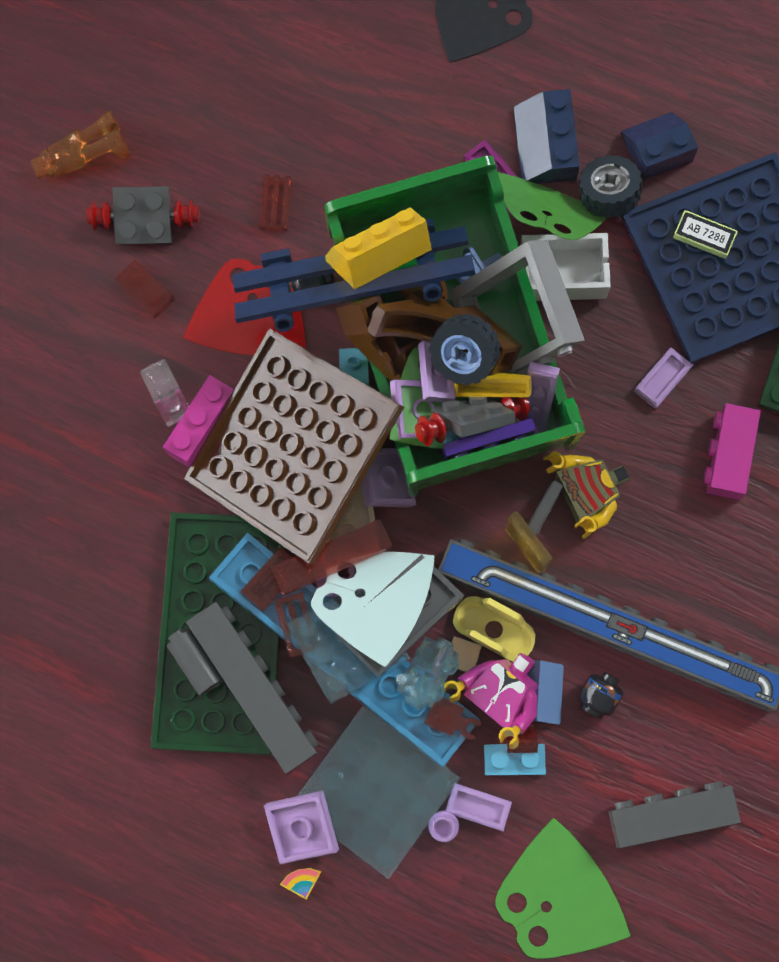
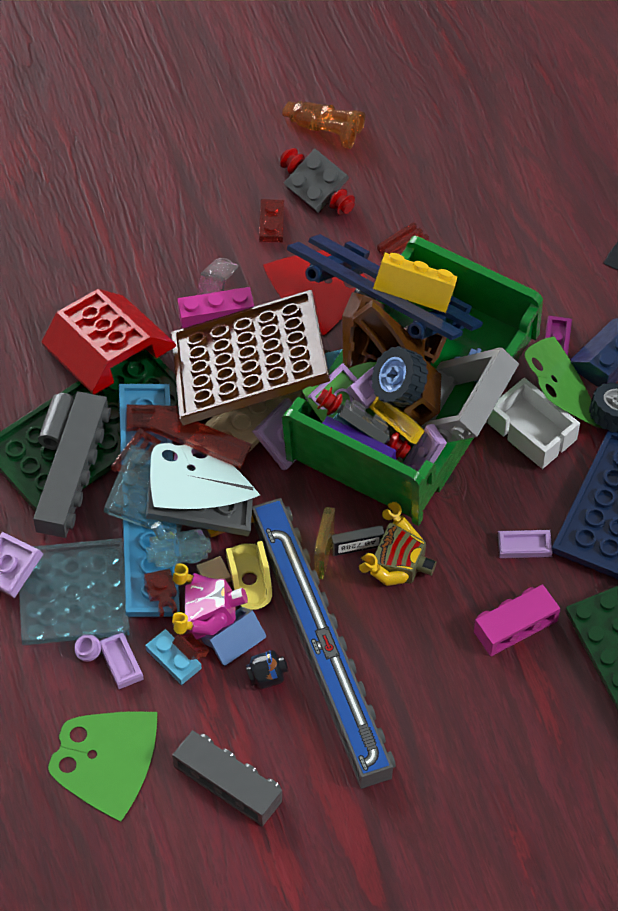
camera: 40 degrees right, 20 degrees down
(142, 545) = (100, 334): none -> red slope

